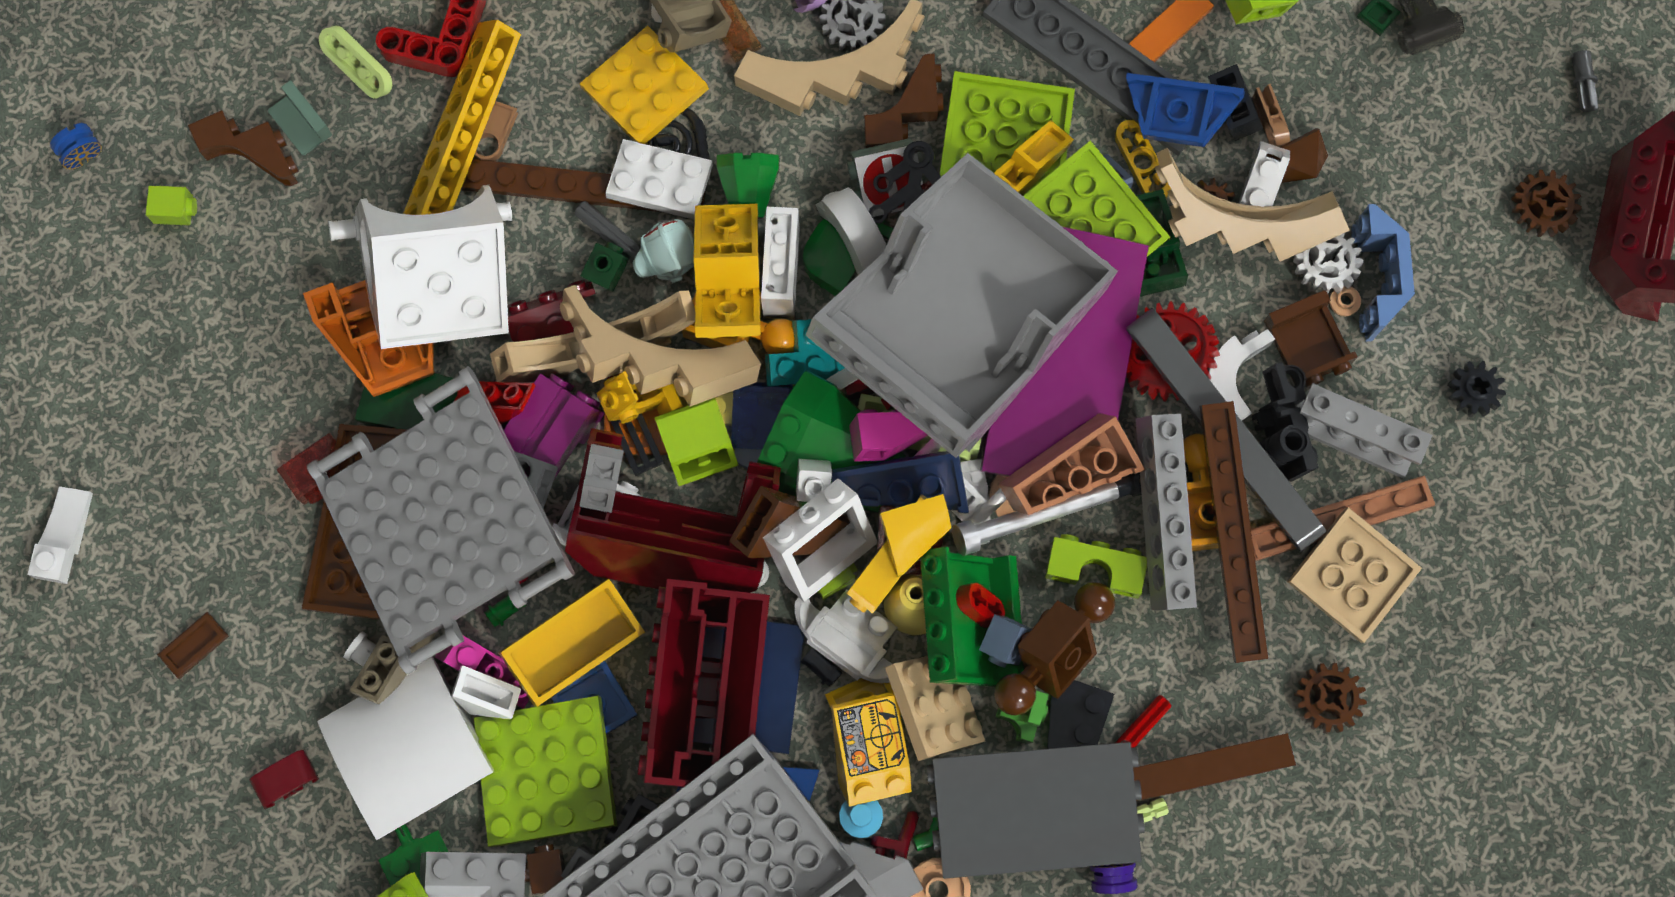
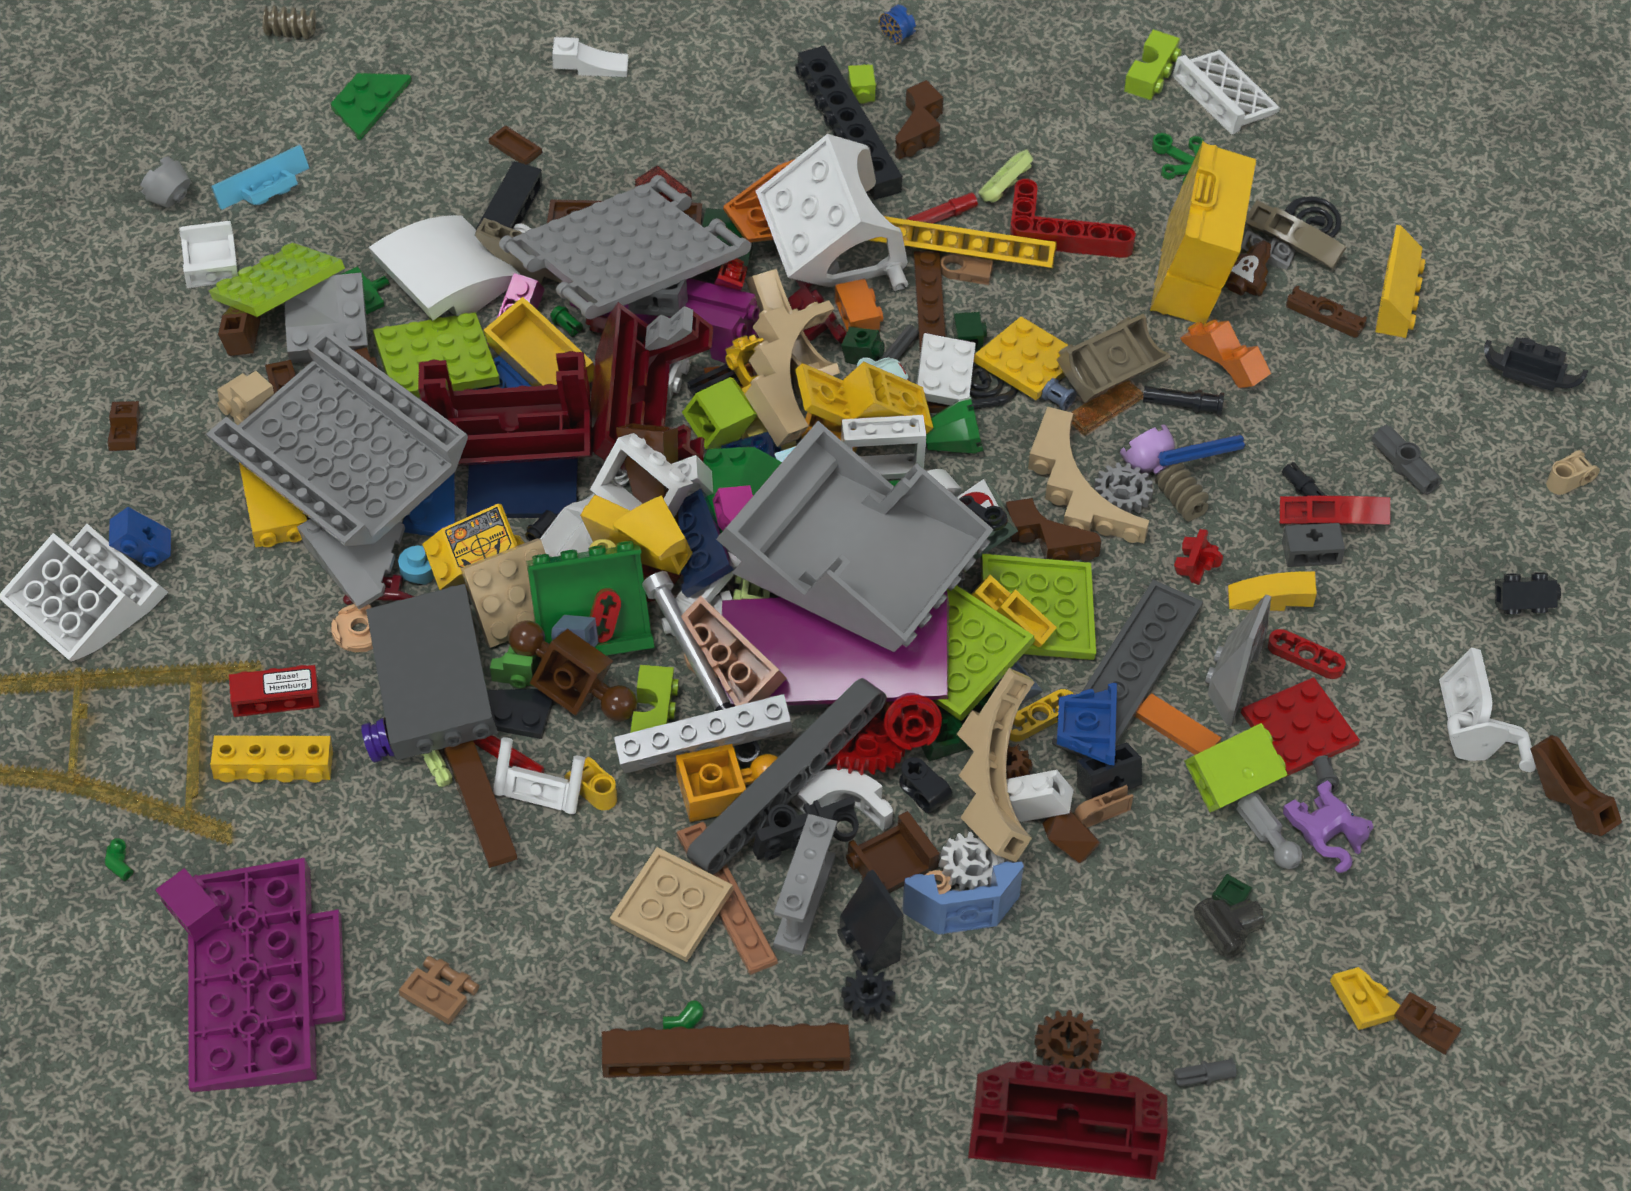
camera: 80 degrees right, 25 degrees down
(75, 831) = (367, 99): none -> green wing
(124, 248) = (846, 115): none -> black brick
(283, 778) = (415, 204): dark red beam -> none
(299, 120) = (952, 151): sand green panel -> none
(302, 658) = (514, 195): none -> black panel
(394, 131) = (951, 208): none -> red axle
(485, 694) = (492, 302): white slope -> none
(541, 263) = (858, 305): none -> orange brick
(596, 144) = (969, 328): none -> dark green brick
(706, 61) = (1067, 396): none -> sand blue bush
(1168, 287) = (912, 721): none -> red cone
(1187, 644) = (594, 783): none -> yellow piece
(1189, 703) = (537, 786): none -> white plate
(1228, 292) = (923, 785): none -> black piece
(1233, 532) = (691, 782): reddish brown plate -> none
(1339, 708) = (554, 896): reddish brown gear -> none
(1416, 371) = (872, 925): none -> black slope
(1442, 836) = (433, 995): none -> medium nougat plate
(1488, 577) = (688, 1017): none -> green arm
(1532, 541) = (725, 1050): none -> reddish brown brick

